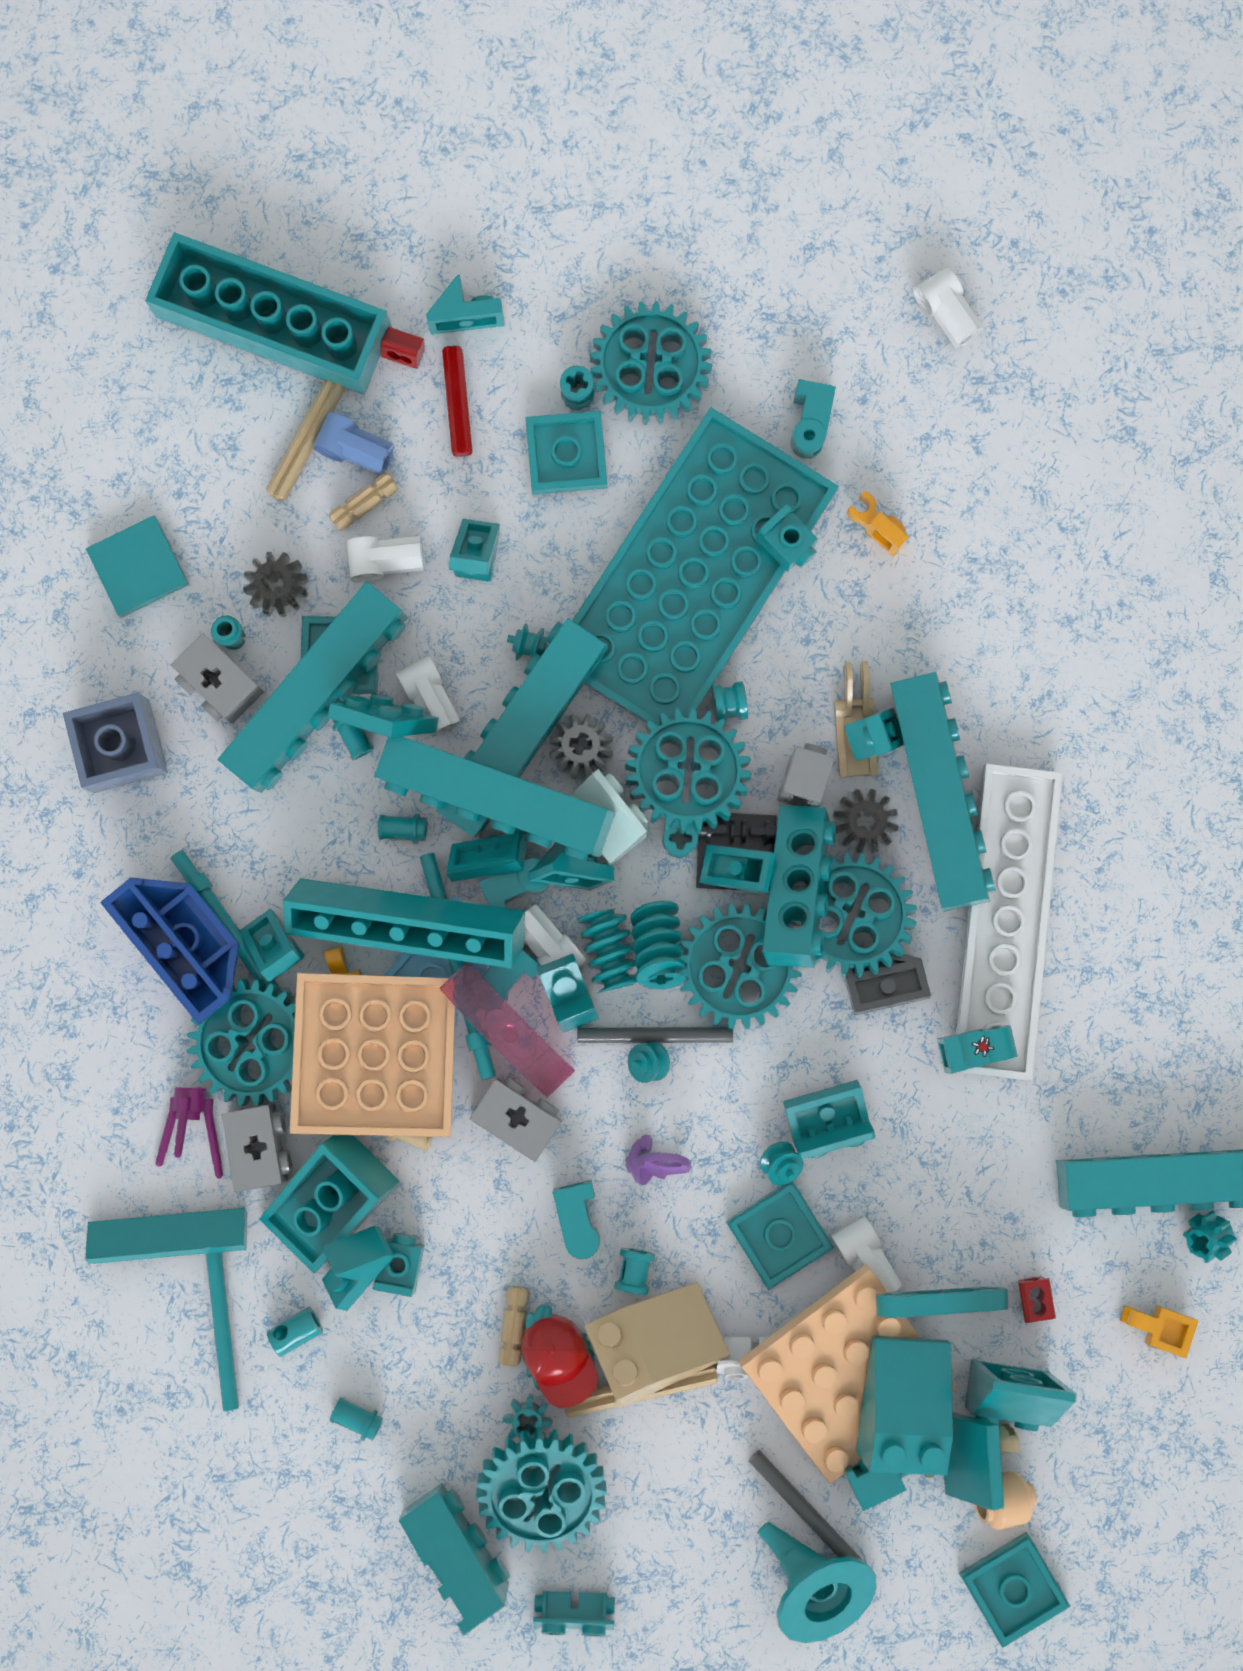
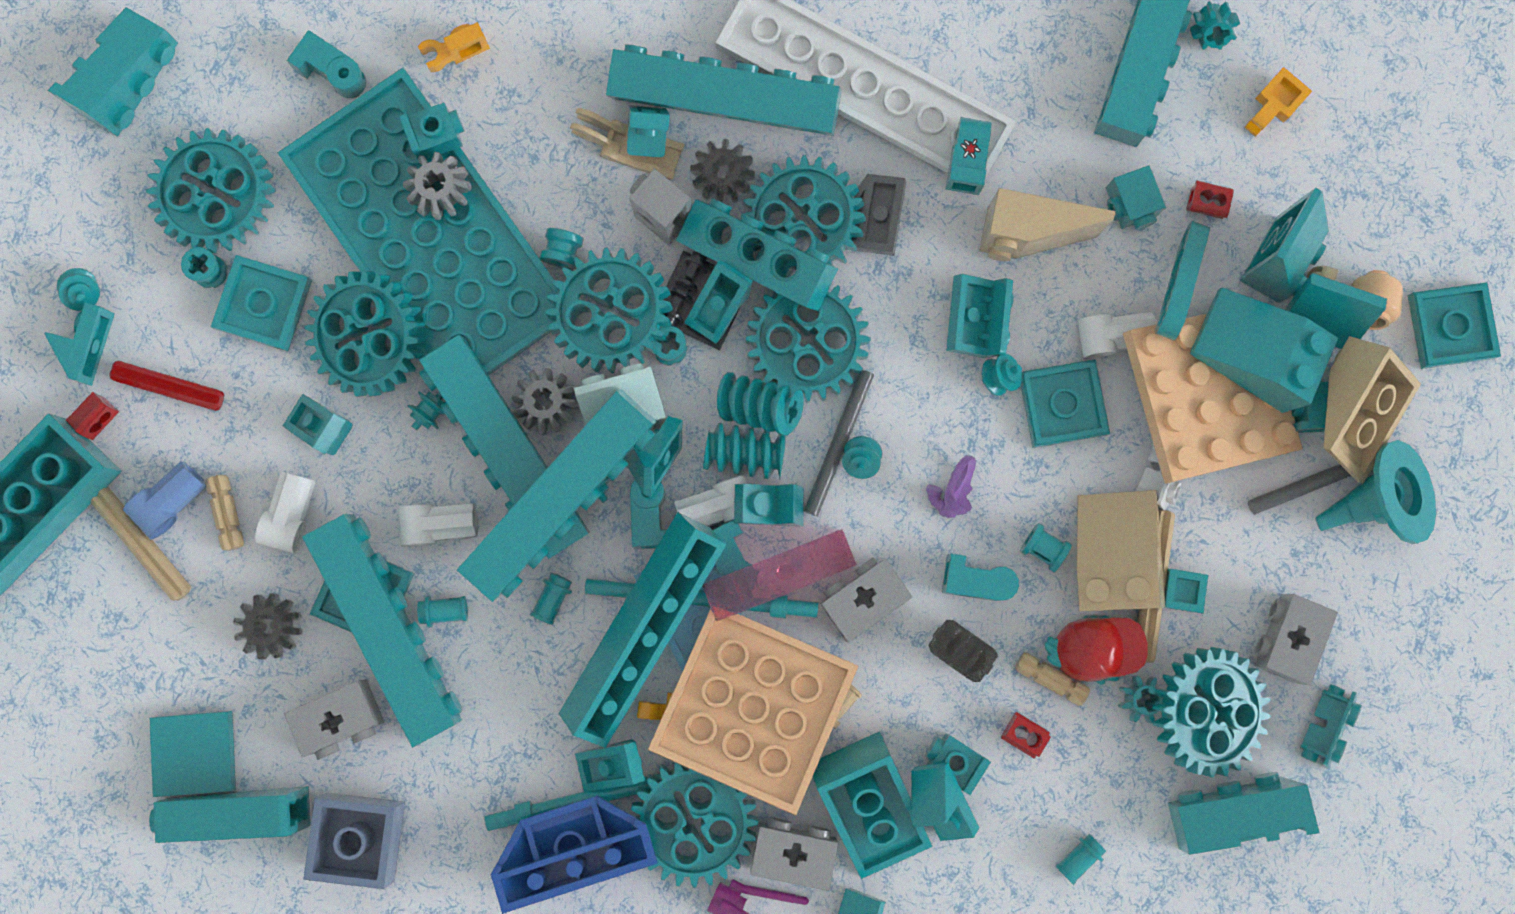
camera: 70 degrees left, 0 degrees up
(95, 625) = (231, 815): none -> teal slope
(223, 626) = (286, 689): teal pin -> none
(294, 1332) = (979, 885): teal piece -> none
(383, 717) = (437, 574): teal plate -> none
(460, 1323) = (1020, 742): none -> red piece
(487, 857) = (611, 529): teal plate -> none
(504, 1229) = (963, 651): none -> clear smoke gear
(511, 285) = (77, 287): none -> teal wheel
(550, 582) = (377, 367): none -> teal gear
(647, 1421) = (1185, 591): none -> teal plate
(664, 1548) = (1309, 624): none -> light grey brick
(724, 235) = (118, 72): none -> teal wedge
(753, 568) = (450, 178): none -> light grey gear
(893, 1526) = (1365, 403): none -> tan slope
(933, 1130) = (1029, 224): none -> tan slope
(1005, 1225) = (1135, 198): none -> teal brick

